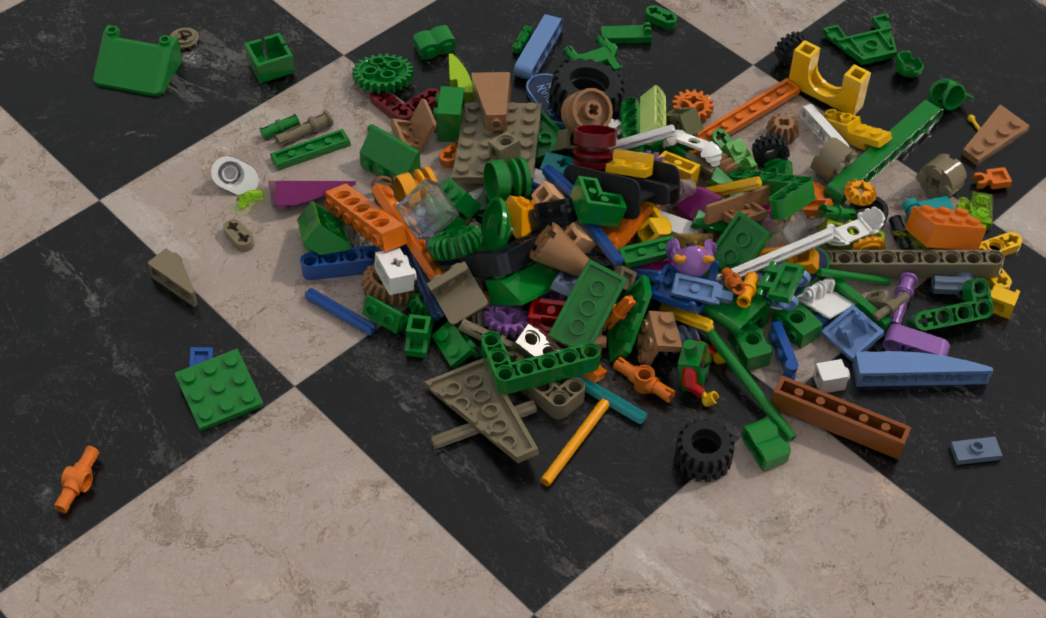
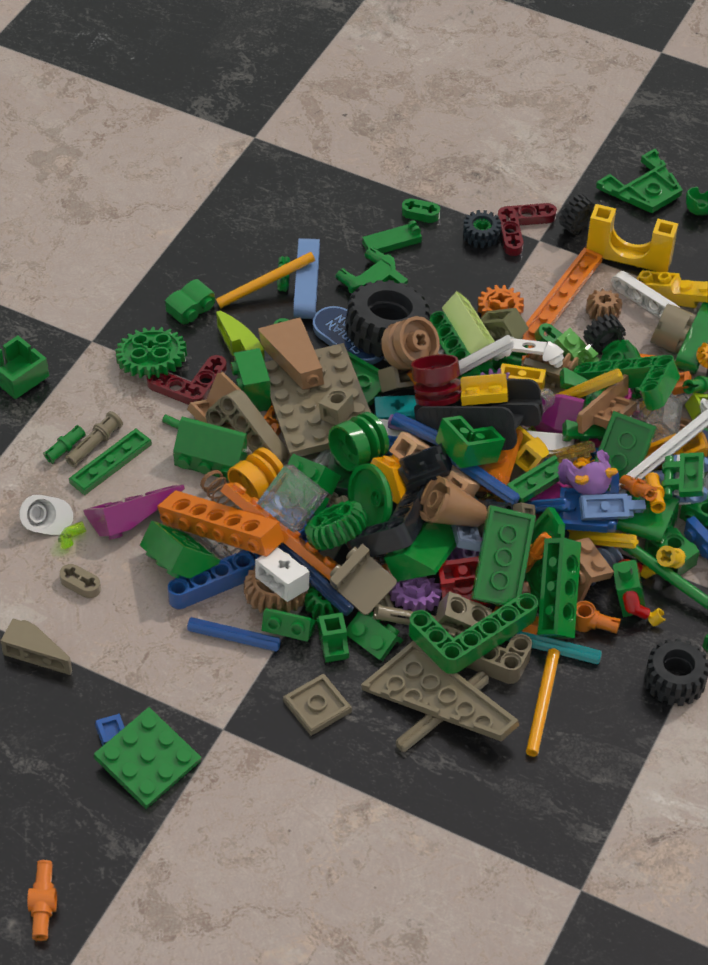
camera: 20 degrees left, 0 degrees up
(381, 388) = (317, 704): none -> dark tan tile
(427, 140) = (246, 418): none -> dark tan beam
(502, 39) = (265, 280): none -> light orange piece
(625, 347) = (559, 588): none -> green brick
(705, 43) = (482, 221): none -> black bush
(738, 348) = (664, 556): none -> yellow bush
(740, 38) = (517, 220): none -> dark red beam

